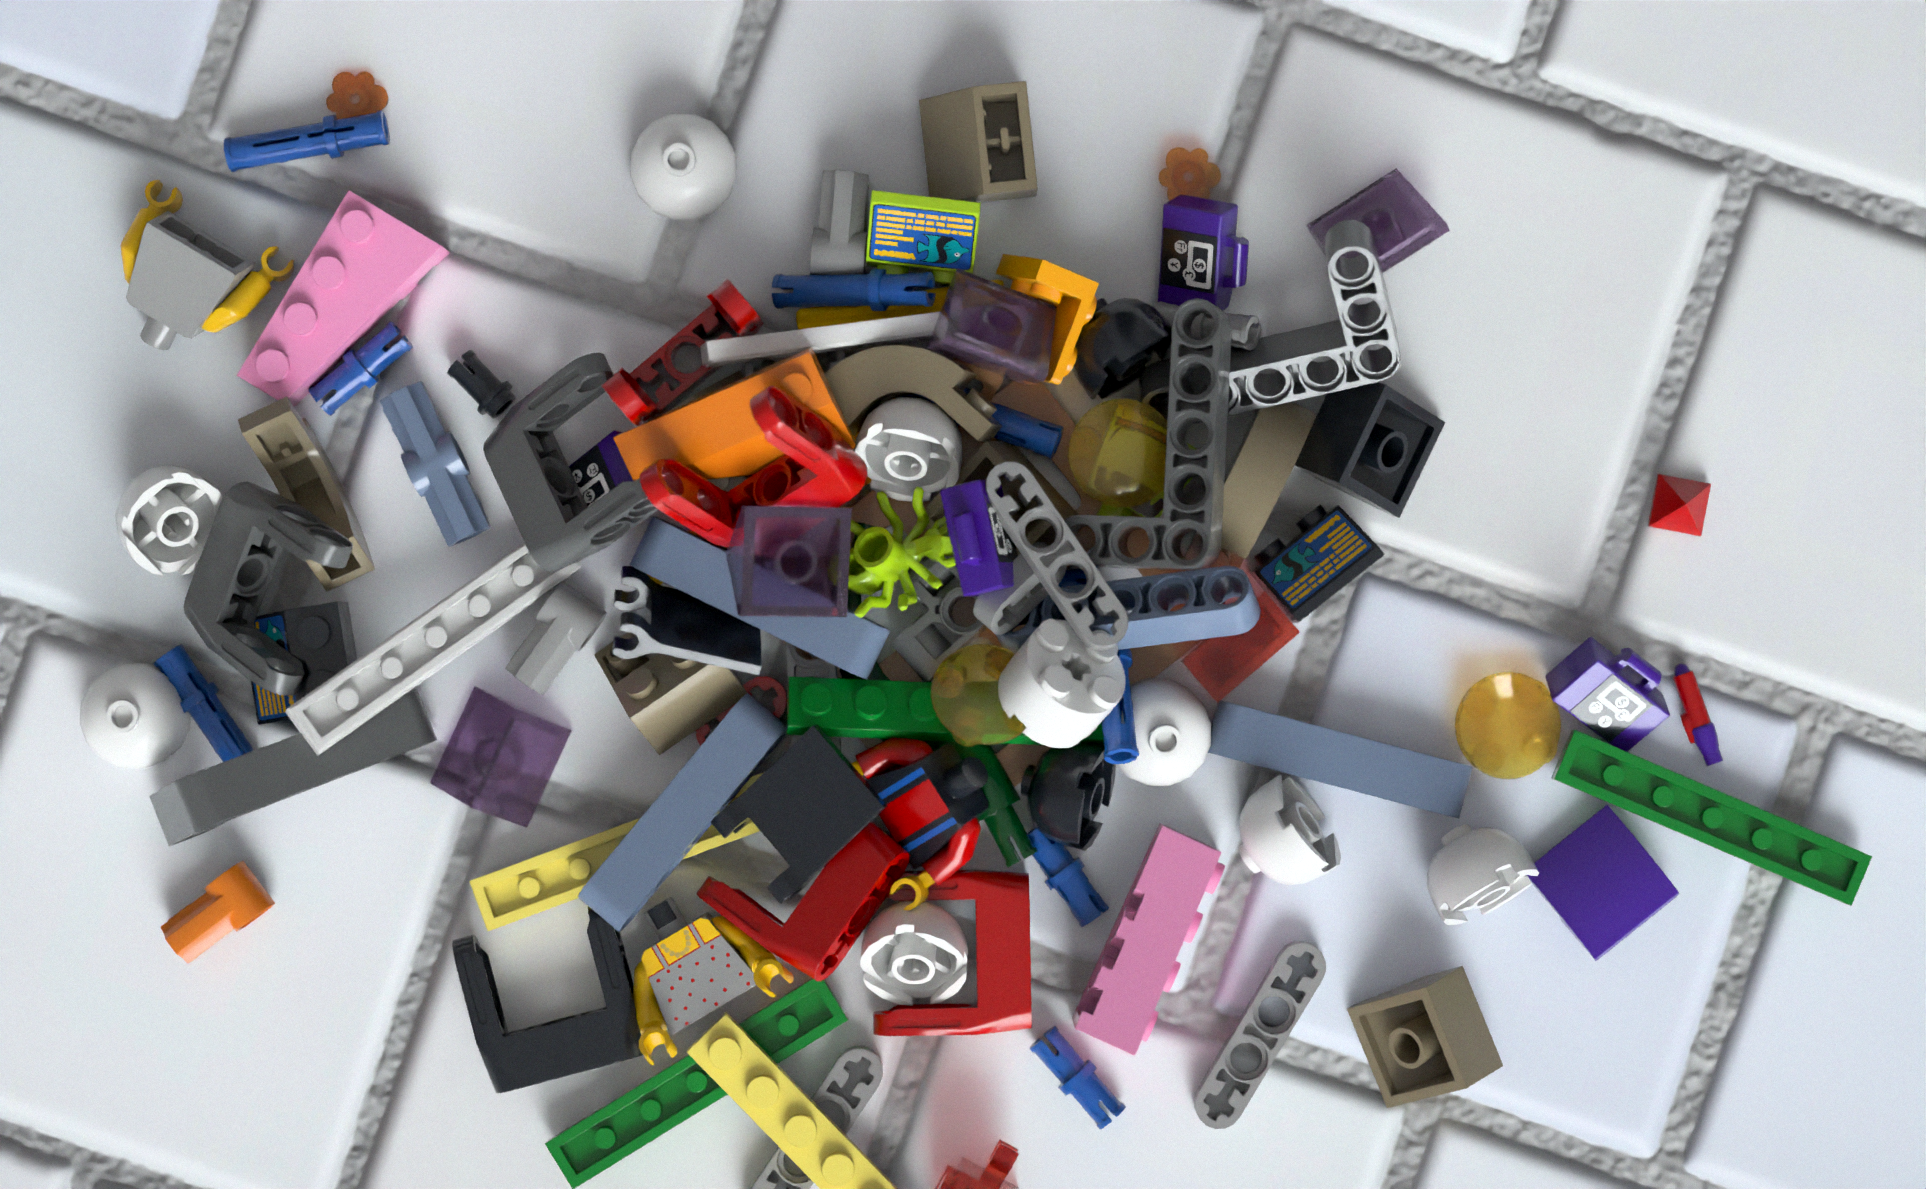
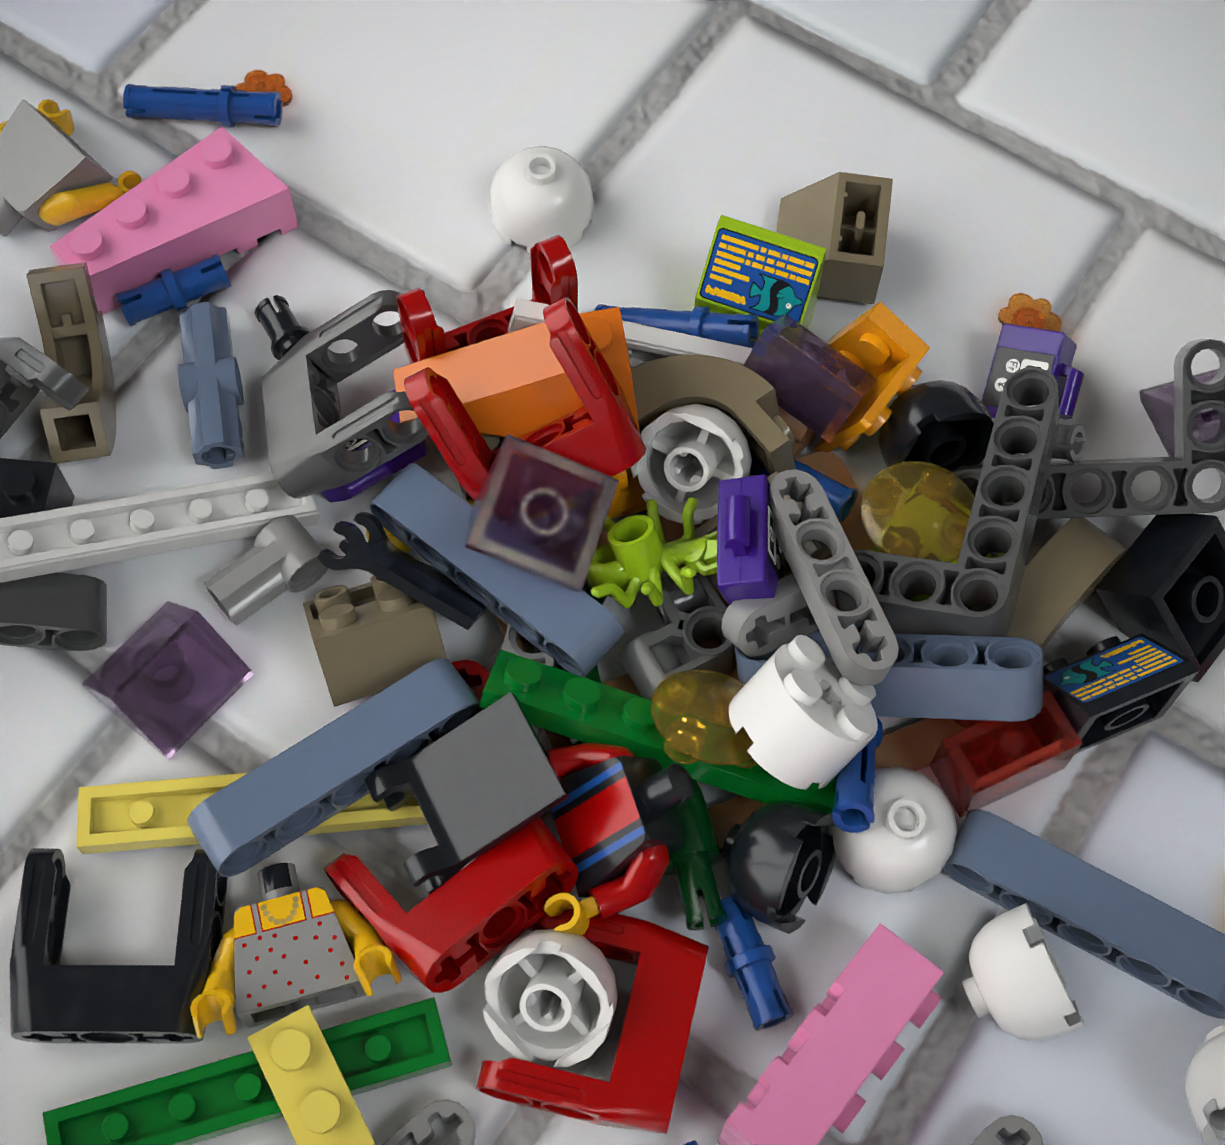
camera: 15 degrees right, 25 degrees down
(840, 238) = (678, 271): light grey piece -> none

